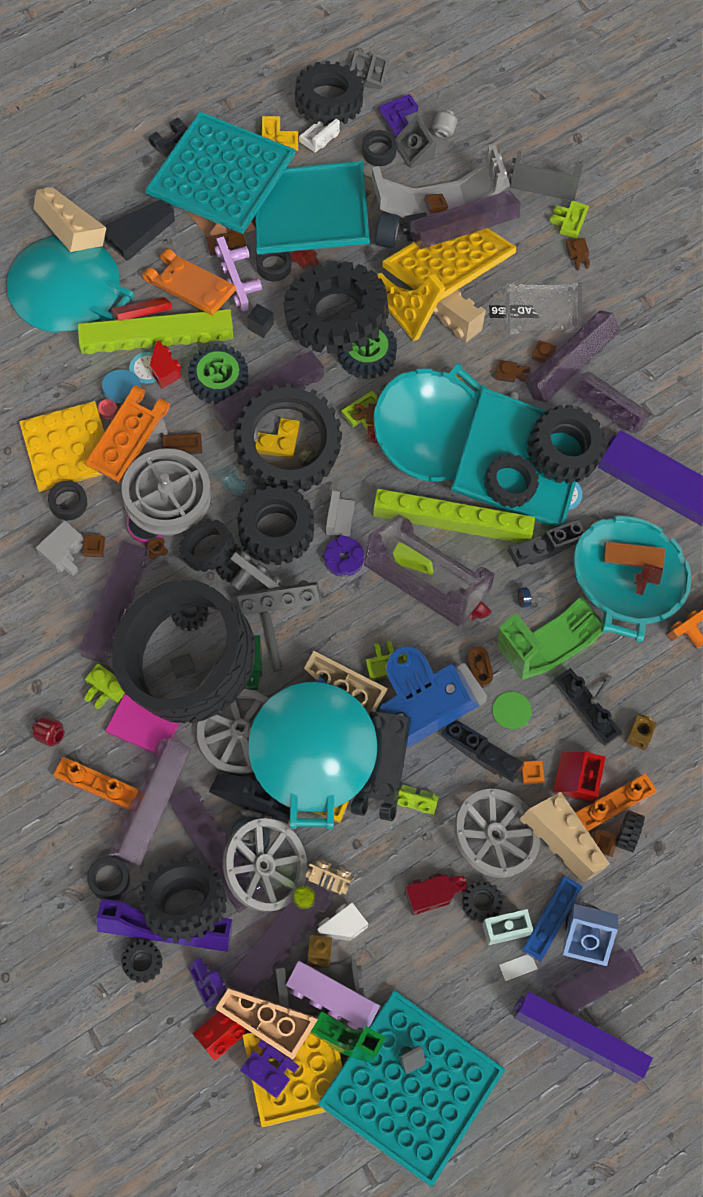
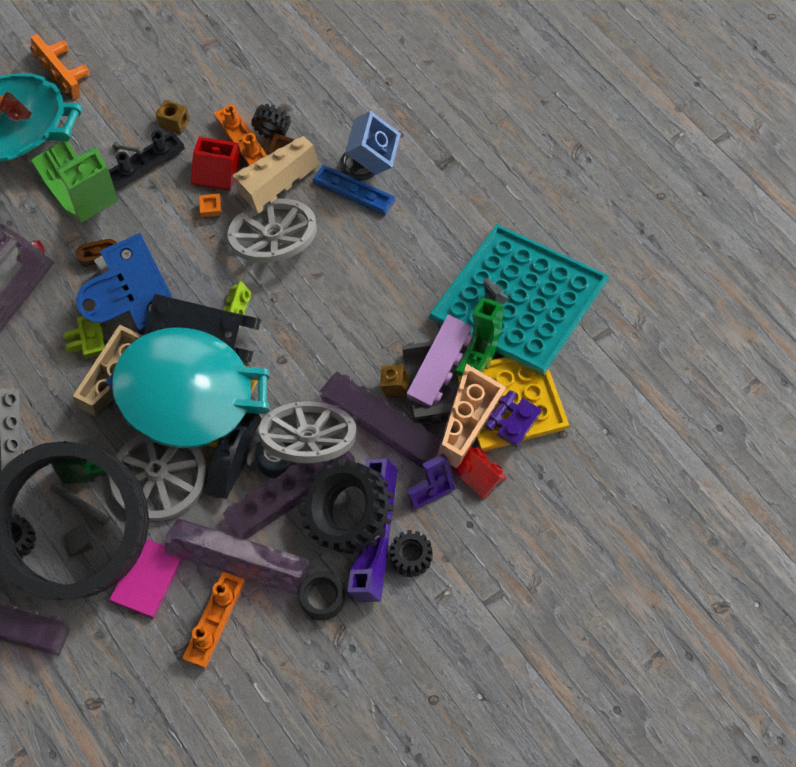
camera: 85 degrees left, 5 degrees down
(48, 731) = (150, 678): dark red head -> none
(106, 683) = (96, 620): lime hinge -> none
(304, 897) = (341, 393): clear neon green tile -> none
(324, 867) = (319, 371): tan hinge -> none
(344, 925) = (365, 361): white slope -> none
(434, 892) = (333, 286): dark red hinge -> none
(481, 751) = (189, 247): black slope -> none
(482, 888) = (339, 234): black tyre -> none
(507, 927) = (365, 219): light aqua brick -> none
(512, 710) = (147, 223): bright green sticker -> none
(518, 967) = (400, 218): white sticker -> none
(524, 597) = (24, 214): dark blue tile -> none
(582, 1037) = (464, 158): dark purple brick -> none
(597, 982) = (416, 151): clear purple brick -> none

